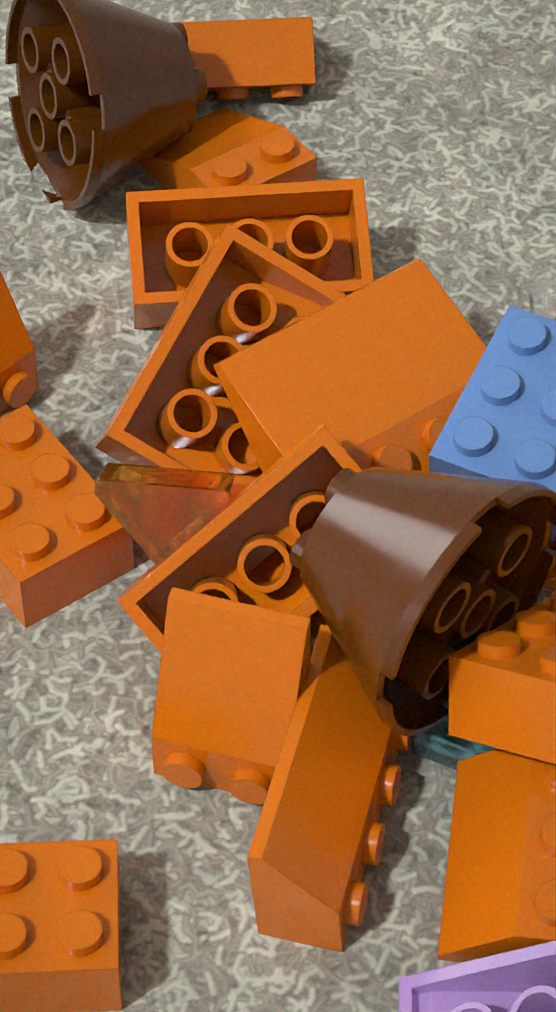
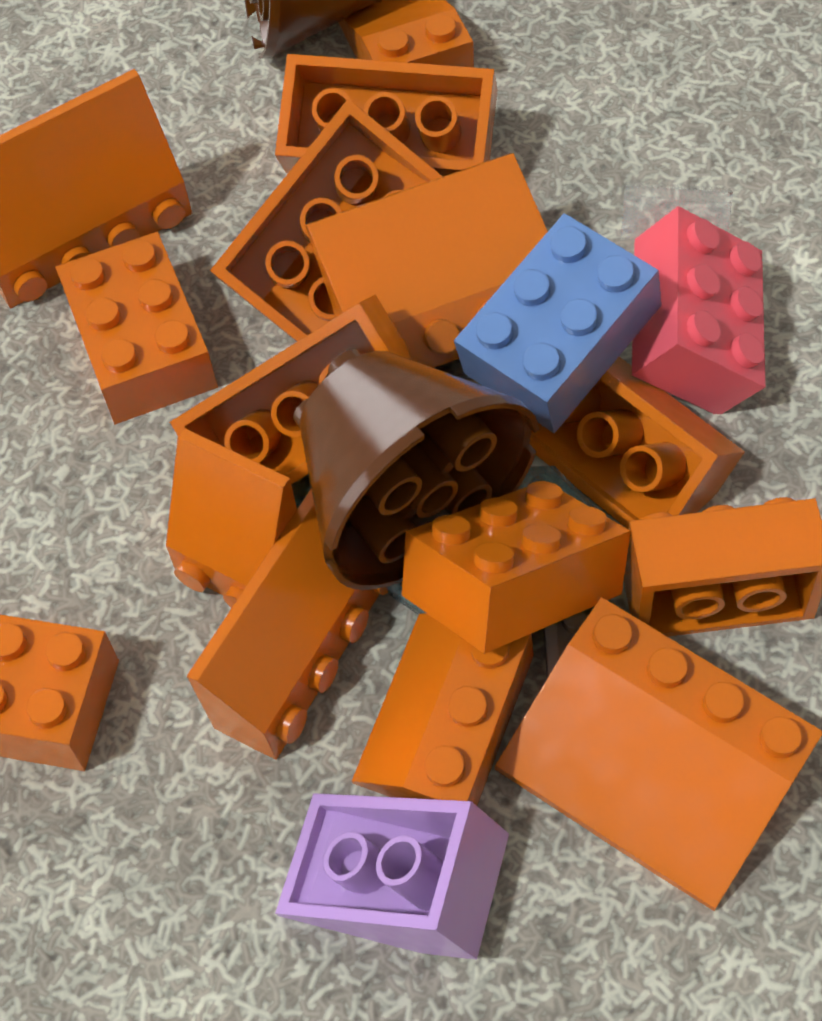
camera: 20 degrees right, 10 degrees up
(162, 503) = (231, 337): clear orange slope -> none

